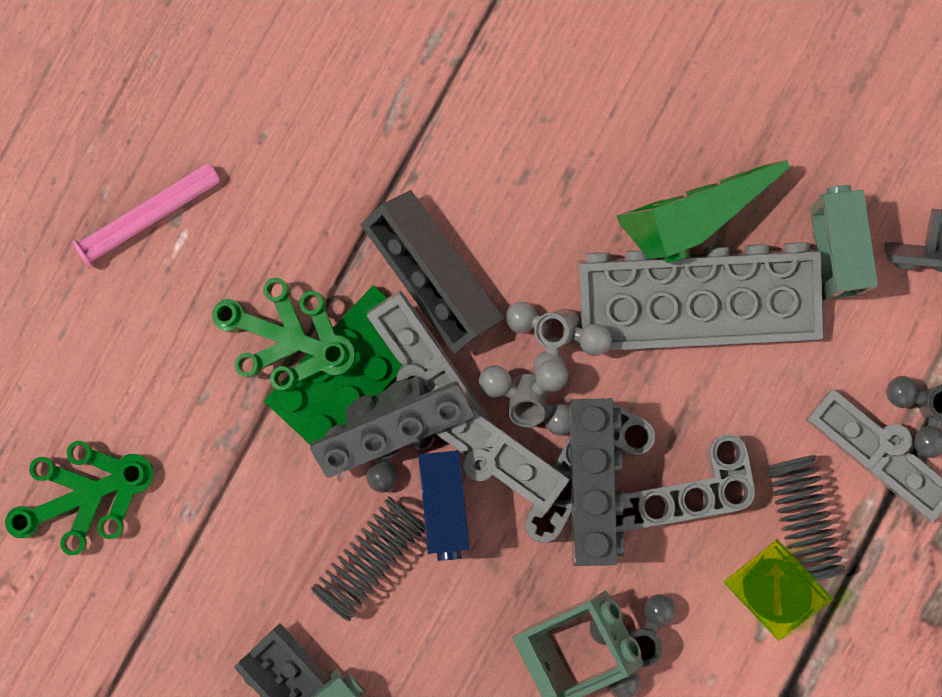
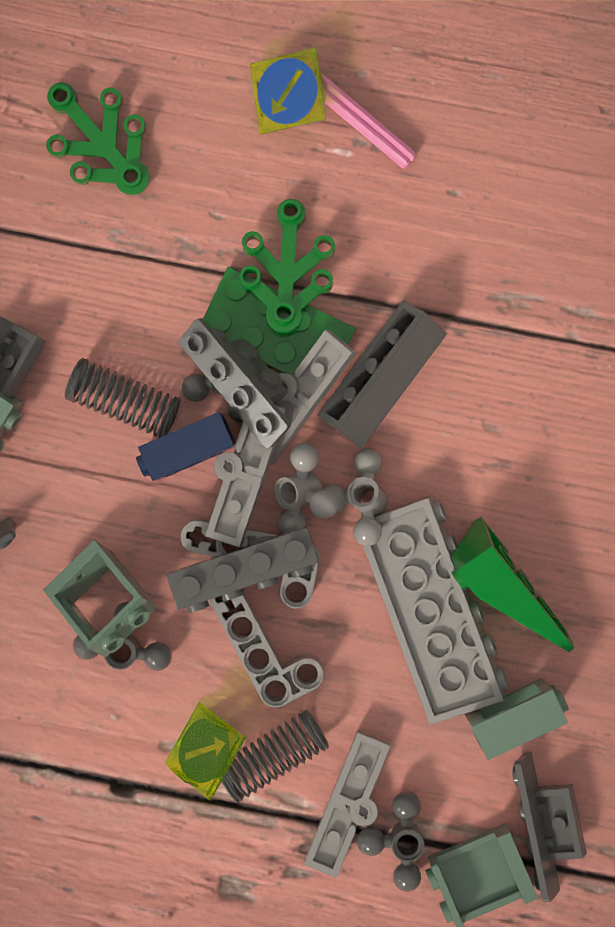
camera: 75 degrees right, 5 degrees up
(98, 276) = (288, 91): none -> piece

